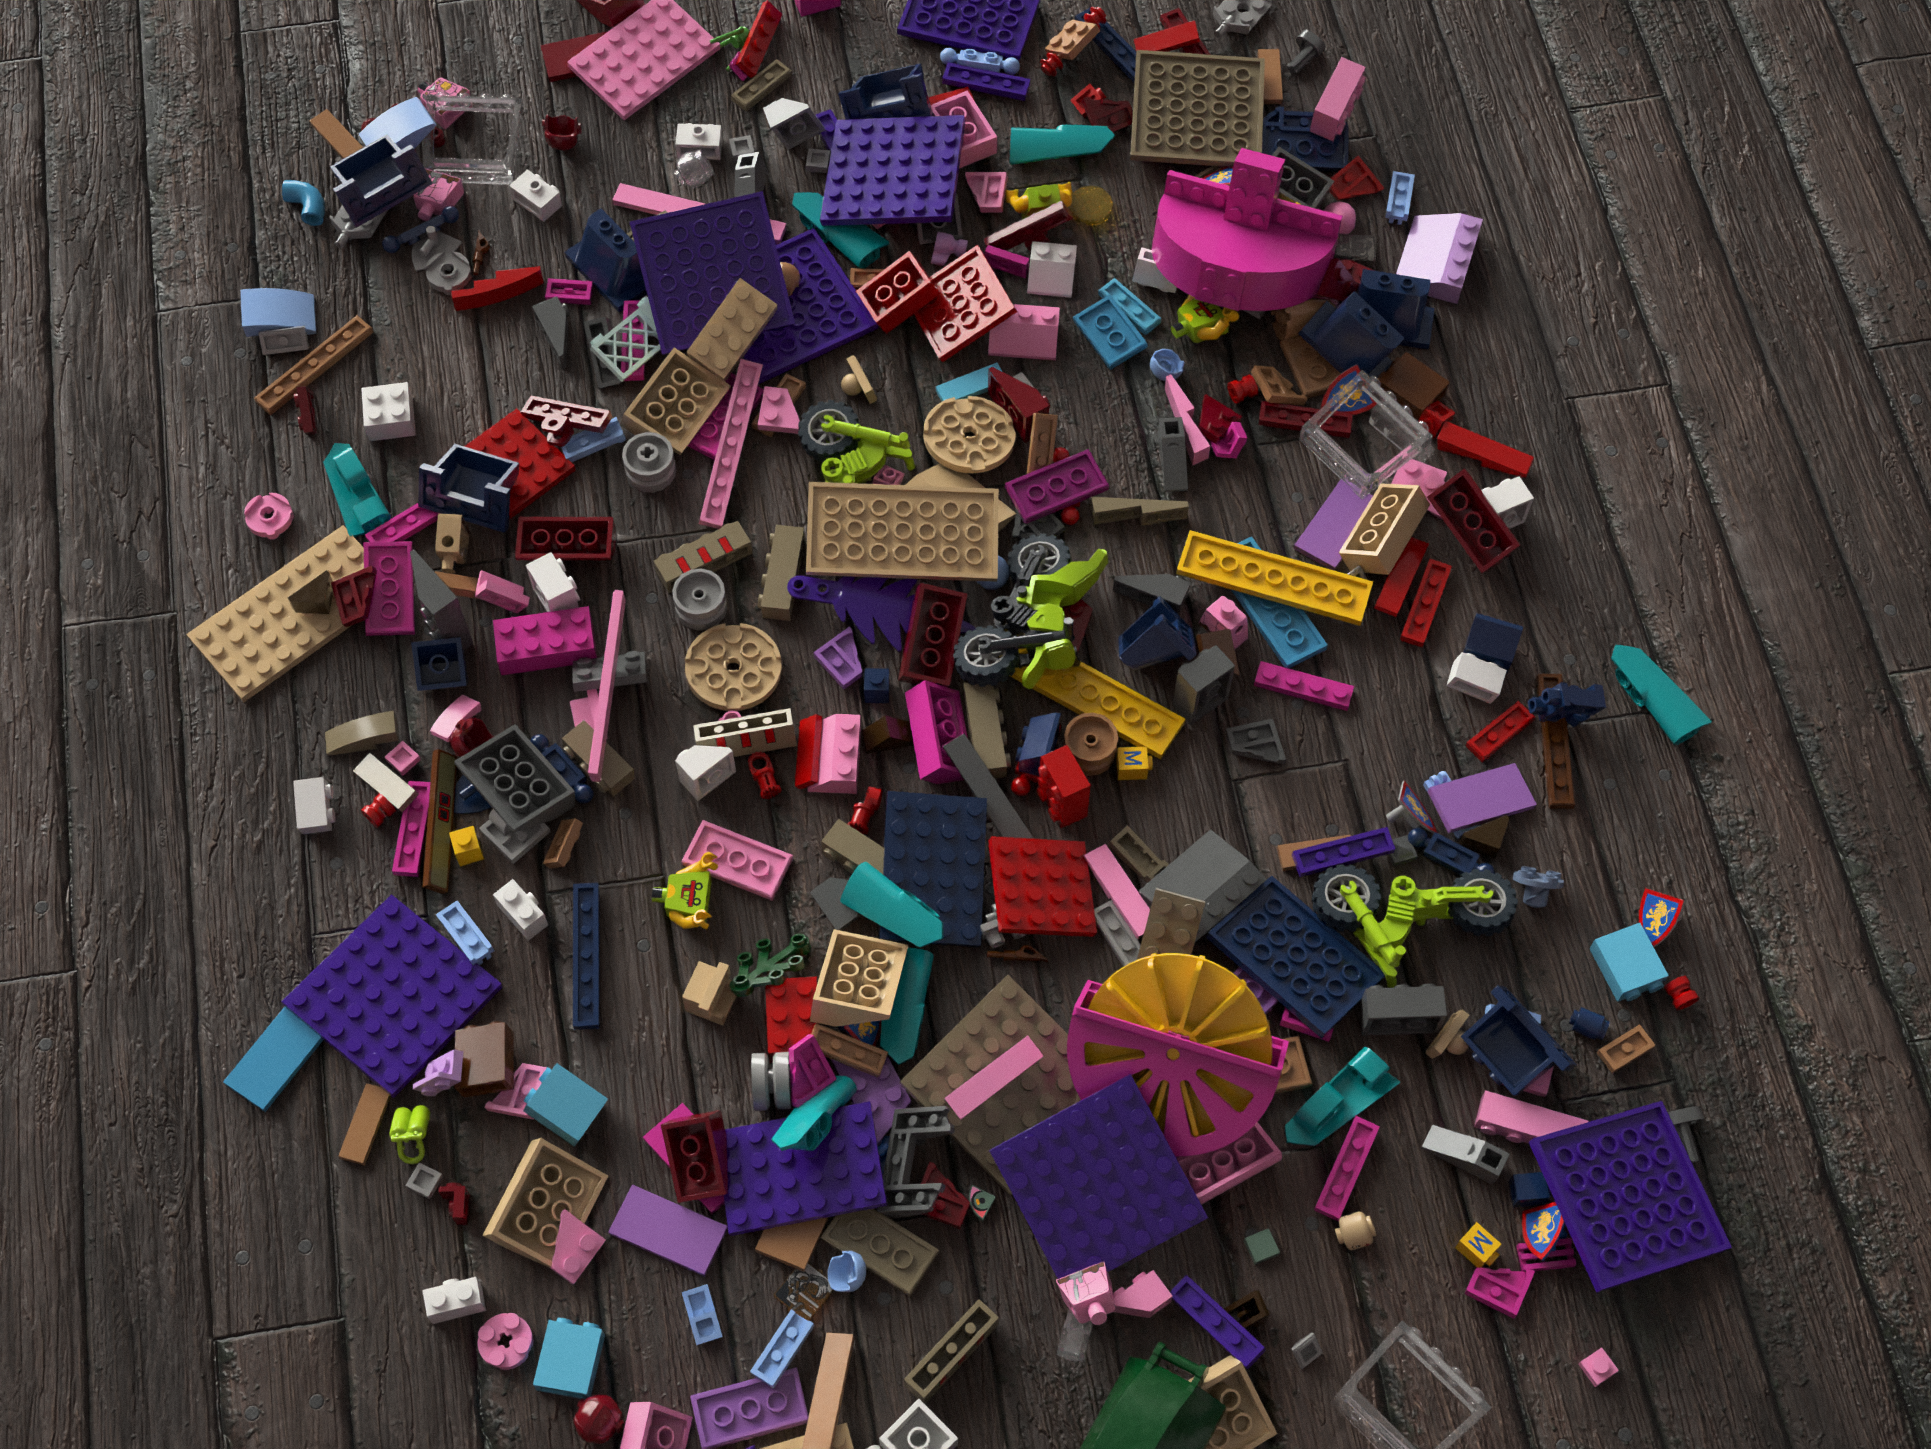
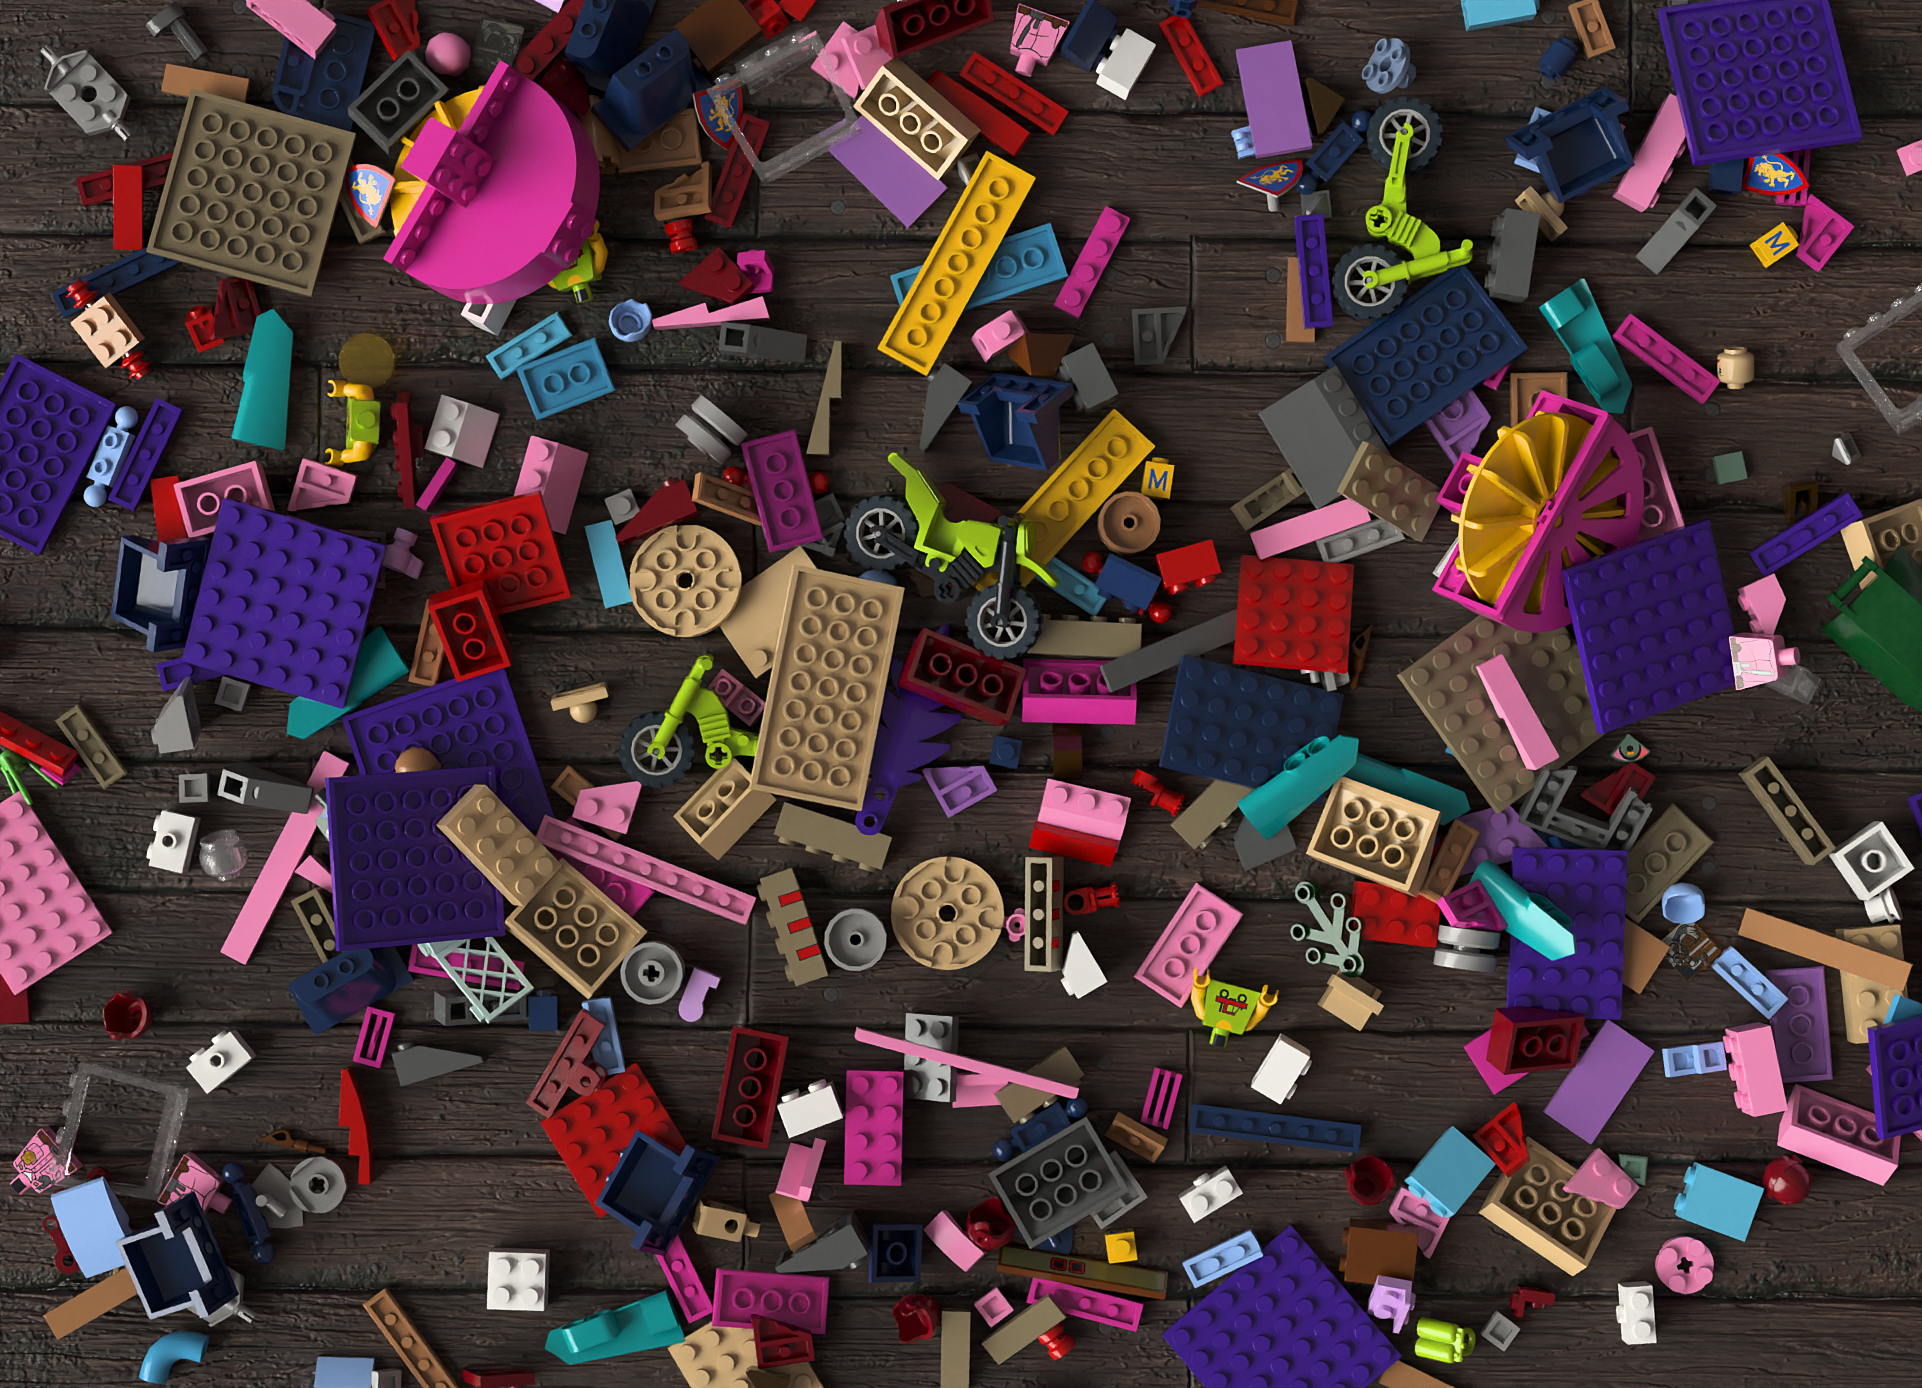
camera: 80 degrees left, 25 degrees up
(389, 697) = (917, 1317): none -> dark red cap
(549, 1036) = (1369, 1180): none -> dark red cap
(592, 1278) = (1634, 1166): none -> sand green tile
(600, 851) = (1155, 1121): none -> dark pink tile
(601, 1150) = (1505, 1140): none -> red wing
(606, 395) = (544, 1011): none -> dark blue brick
(636, 497) = (692, 1002): none -> lavender leg
(639, 948) = (1281, 1069): none -> white brick
(699, 1364) = (1755, 1069): none -> bright pink brick
(783, 490) = (723, 809): none -> tan slope
(1033, 705) = (1074, 587): none -> medium azure tile
(1094, 427) = (711, 430): none -> light grey wheel
(1472, 601) = (1035, 38): none -> bright pink torso

